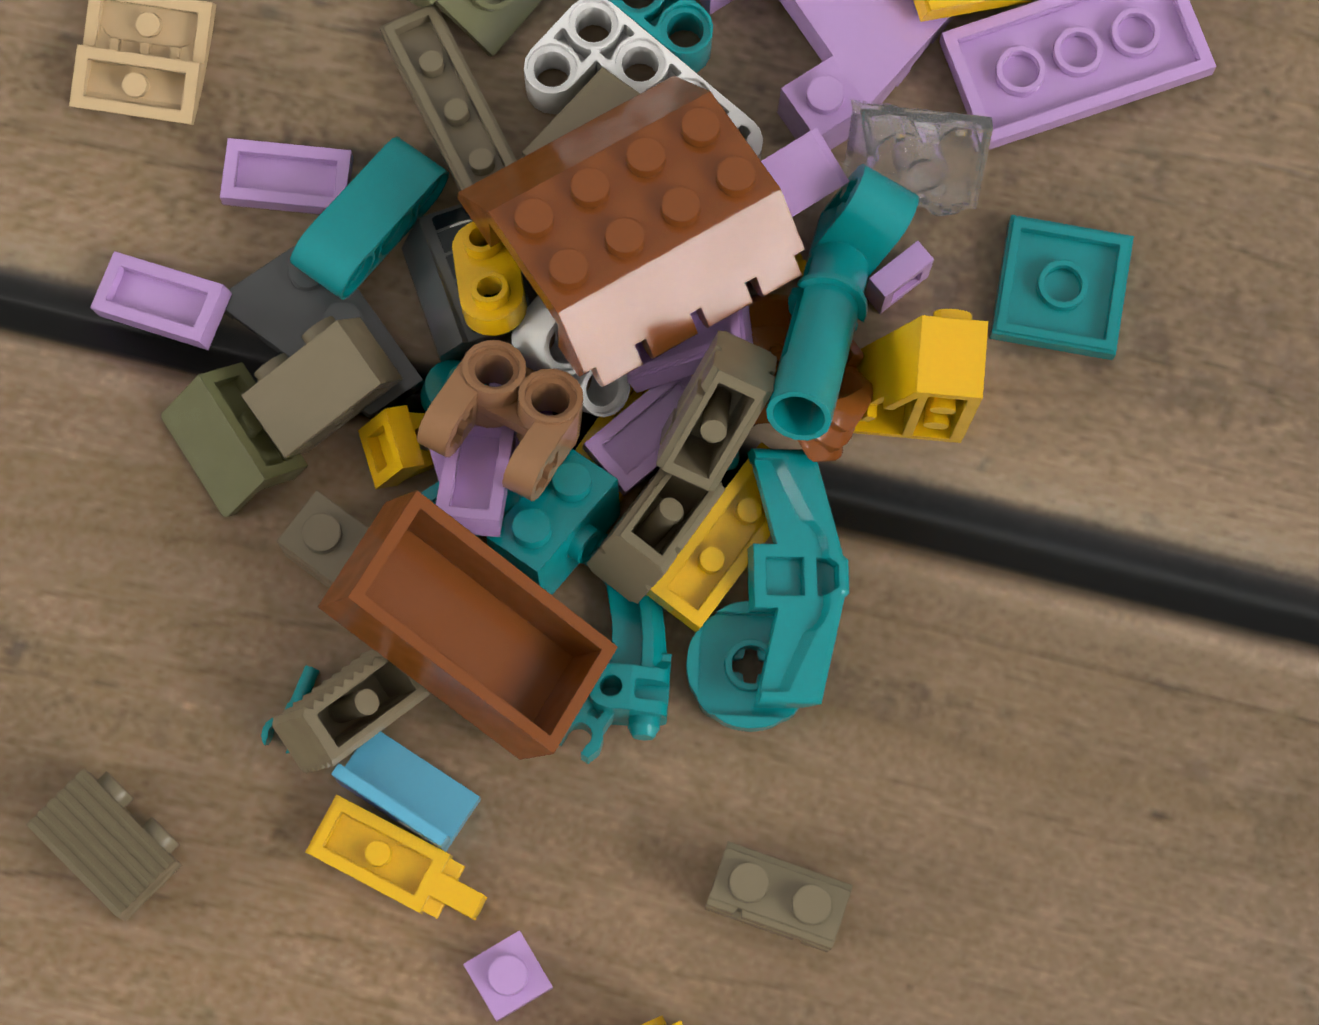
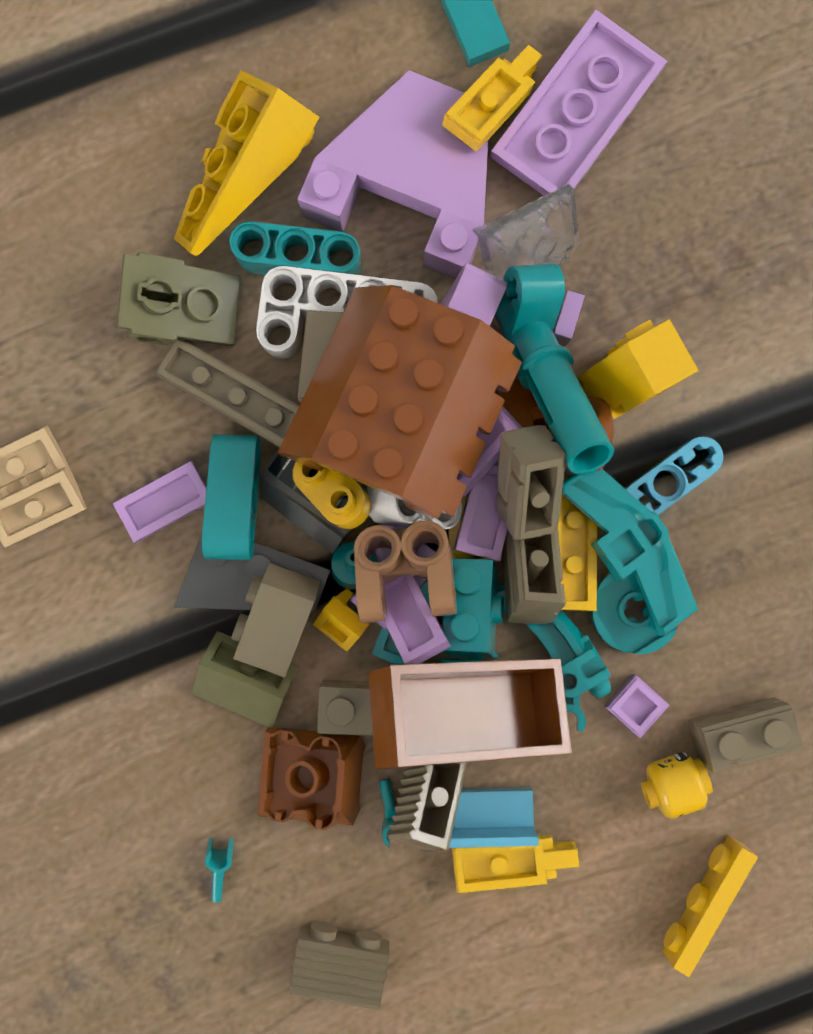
camera: 35 degrees left, 10 degrees up
(49, 629) = (218, 862): none -> teal hand
(161, 300) = (143, 628): lavender tile -> none
(231, 602) = (310, 777): none -> dark orange slope
(508, 976) = (617, 878): lavender plate -> none
(655, 907) = (677, 785): none -> yellow head
(674, 786) = (636, 705): none -> lavender tile
(936, 558) = (683, 455): none -> medium azure beam
(1061, 287) = (661, 259): teal tile -> none

